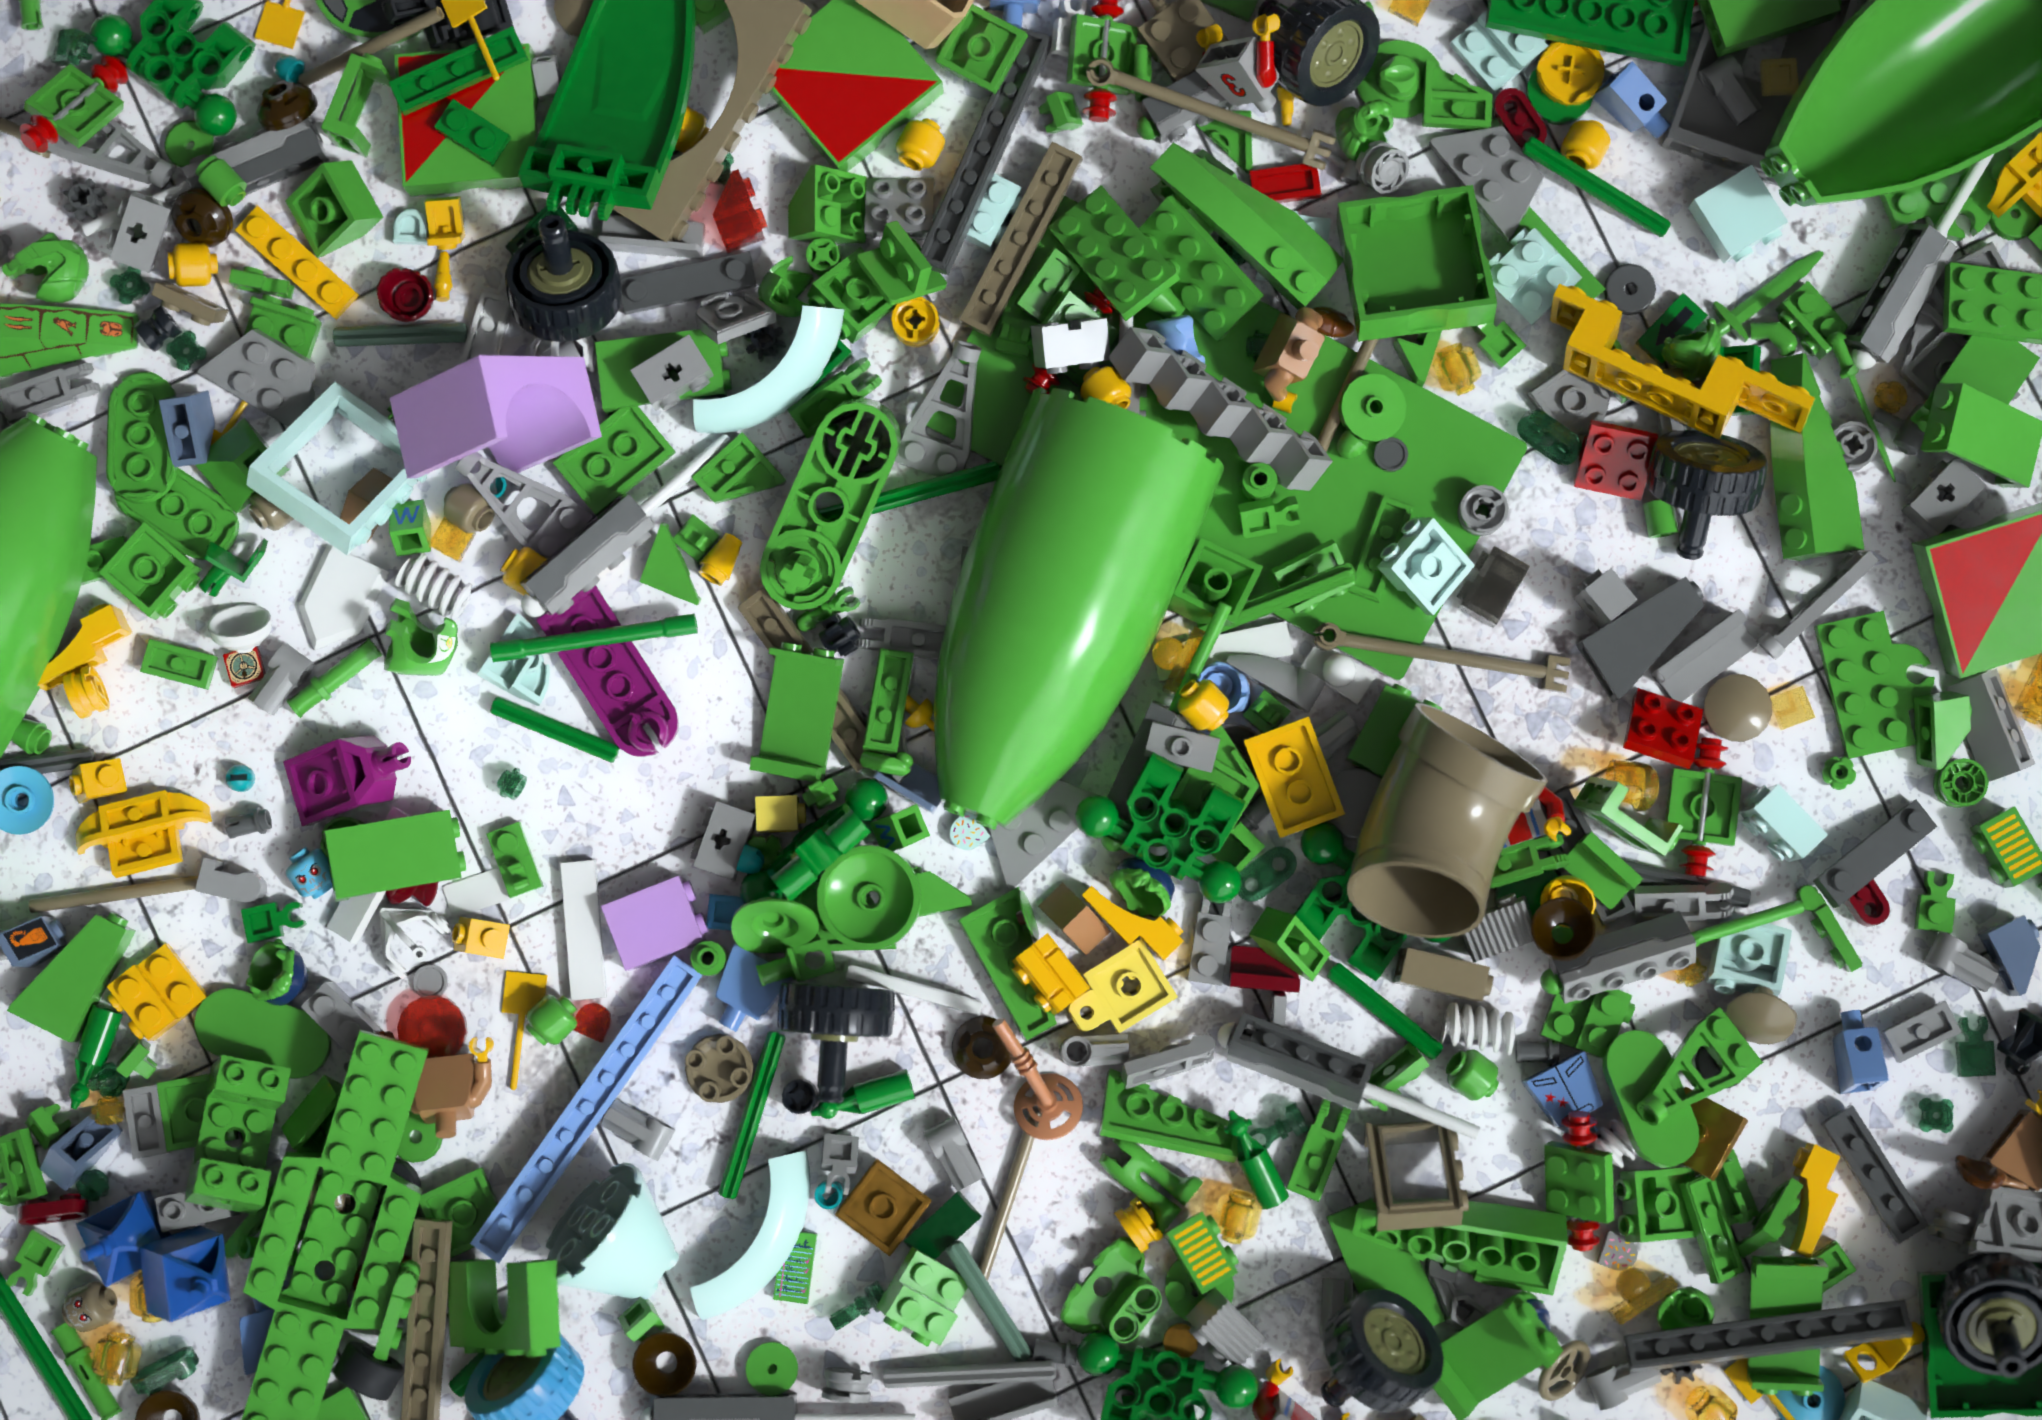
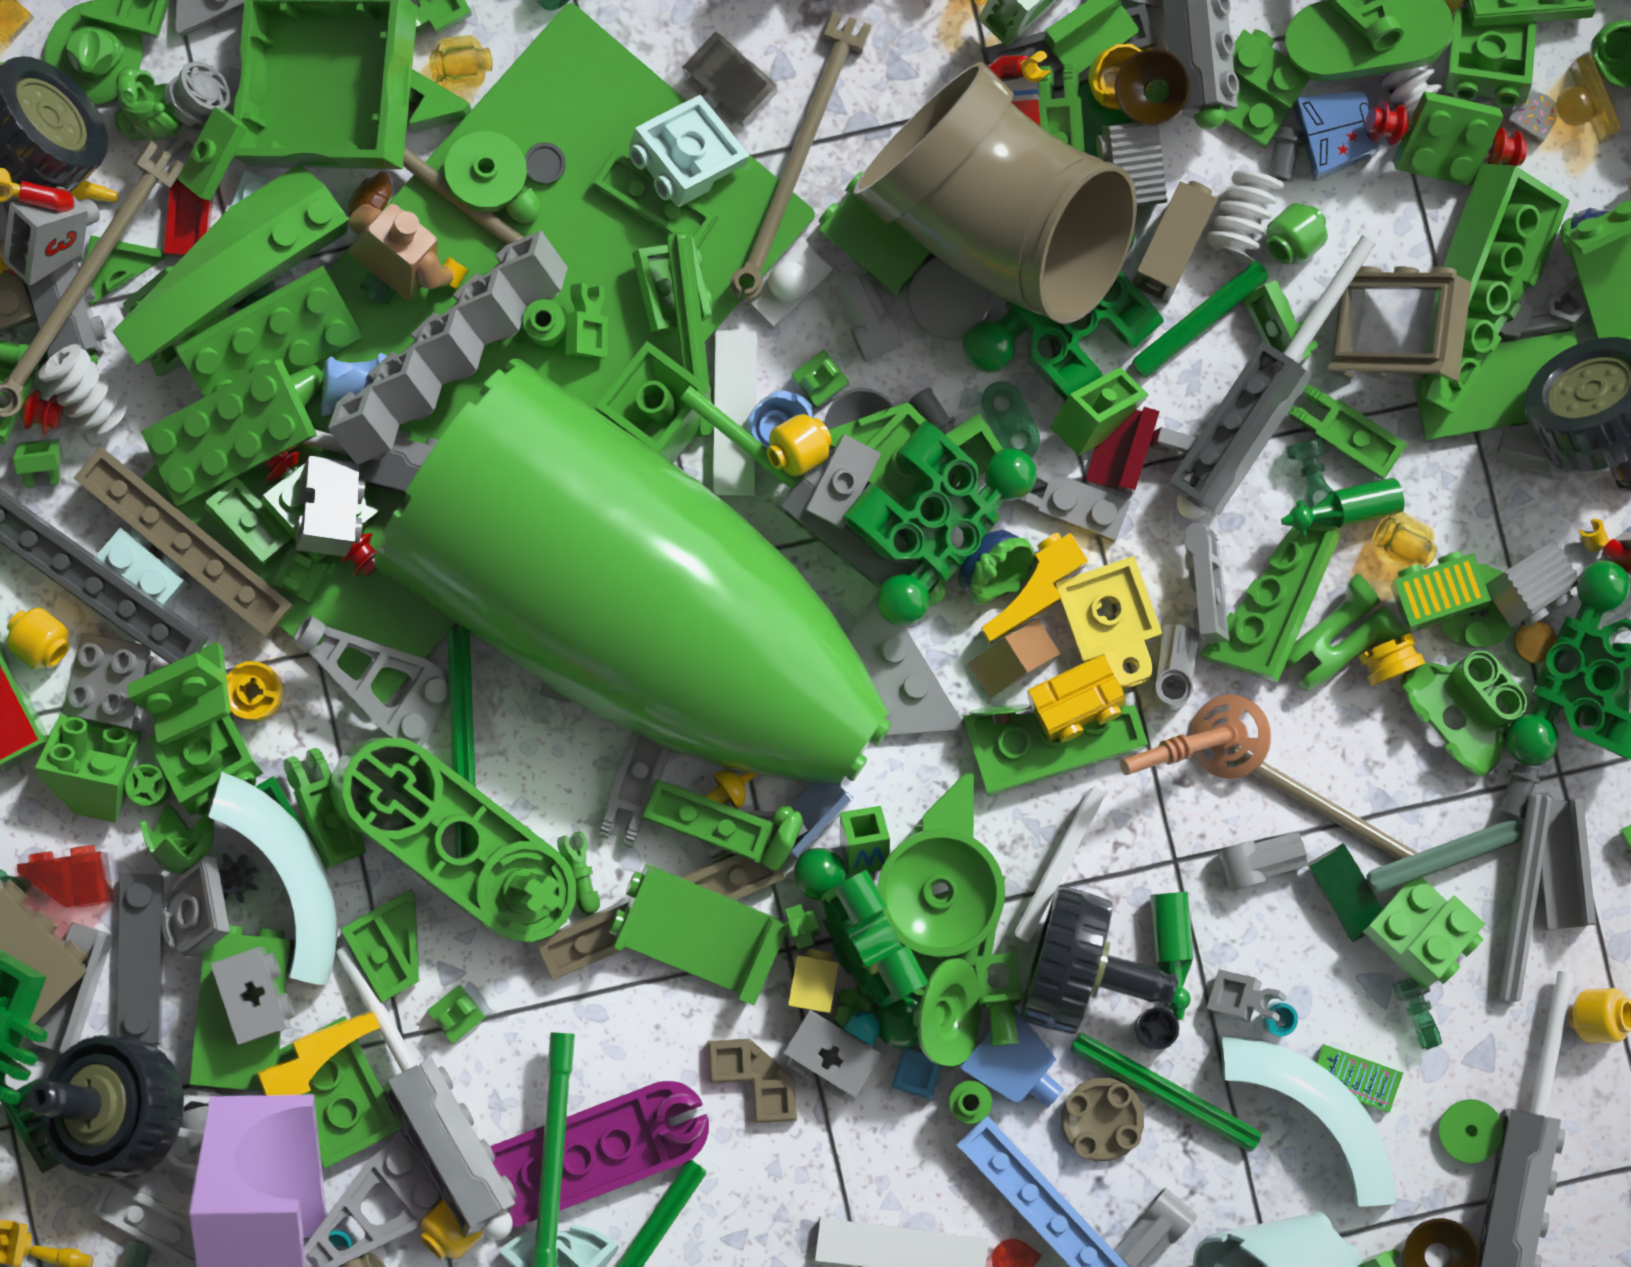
camera: 80 degrees left, 0 degrees up
(640, 430) = (311, 1053): none -> yellow slope
(655, 922) = (912, 1159): lavender brick -> none
(667, 568) = (487, 1055): bright green tile -> none
(692, 799) = (772, 1085): none -> dark tan tile
(720, 560) = (490, 988): yellow cone -> none
(839, 634) = (614, 863): black gear -> none
(847, 1385) = (1509, 1044): light grey wheel -> none
(883, 1207) = (1308, 957): pearl gold plate -> none
(963, 1053) = (1138, 822): dark brown piece -> none
(967, 833) = (885, 762): light aqua tile -> none
(1106, 385) = (391, 475): yellow head -> none
(1123, 132) = (83, 390): none -> white piece
(1173, 655) = (732, 467): clear yellow tile -> none
(1282, 679) = (783, 352): light grey piece -> none
(1294, 777) = (905, 360): yellow plate -> none
(1336, 189) = (212, 153): none -> bright green plate
(1479, 524) = (624, 82): light grey wheel -> none

